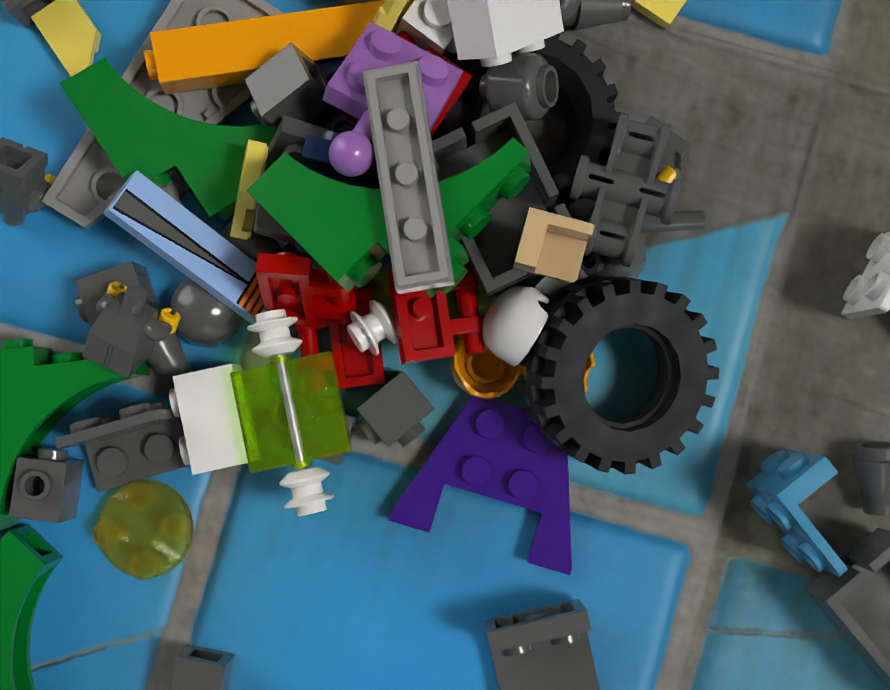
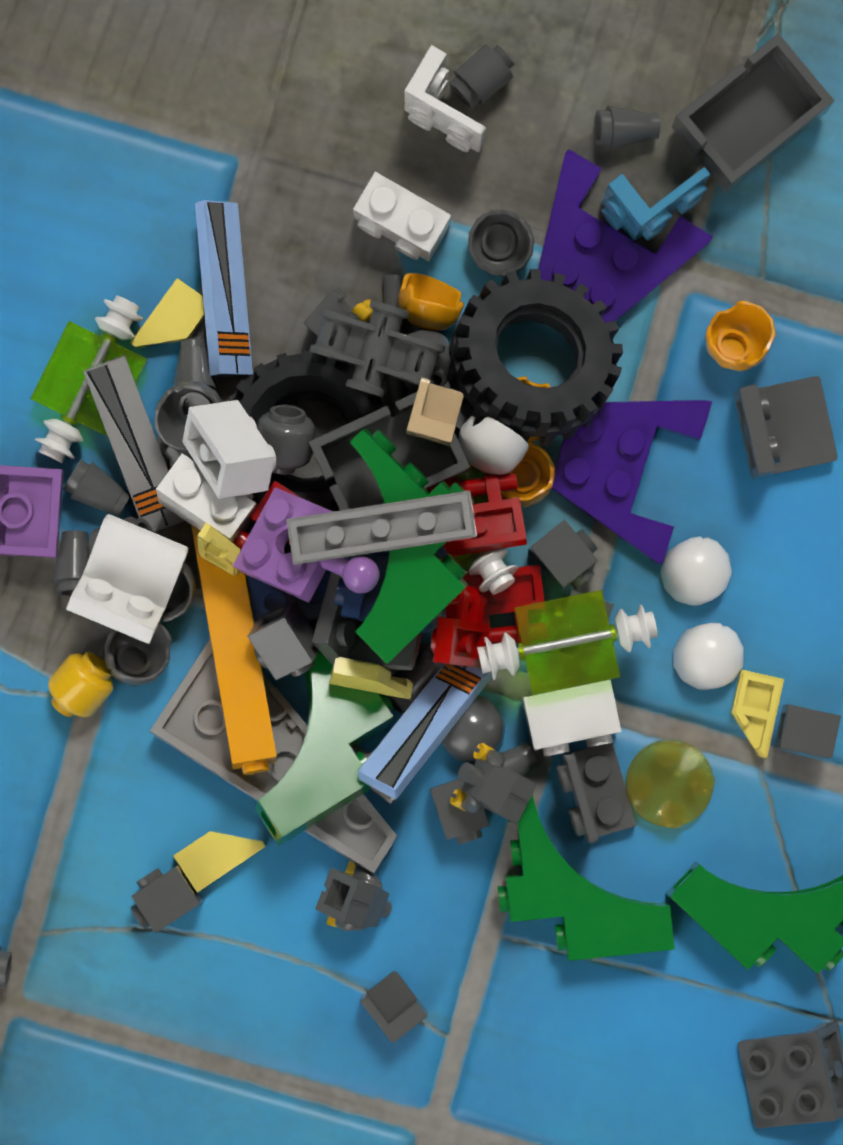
camera: 90 degrees left, 0 degrees up
(46, 486) = (630, 870): dark grey brick -> none
(230, 625) = (756, 708): none -> light yellow tile
(286, 572) = (708, 656): none -> white hair
(380, 558) = (696, 571): none -> white hair
(645, 608) = (740, 336): none -> light orange hair
(676, 256) = (429, 302): none -> light orange hair
(687, 34) = (223, 288): none -> light blue tile
(729, 451) = (600, 256): none -> dark purple wing
(746, 336) = (500, 242): none -> dark grey hair
(771, 226) = (401, 217): none -> white brick

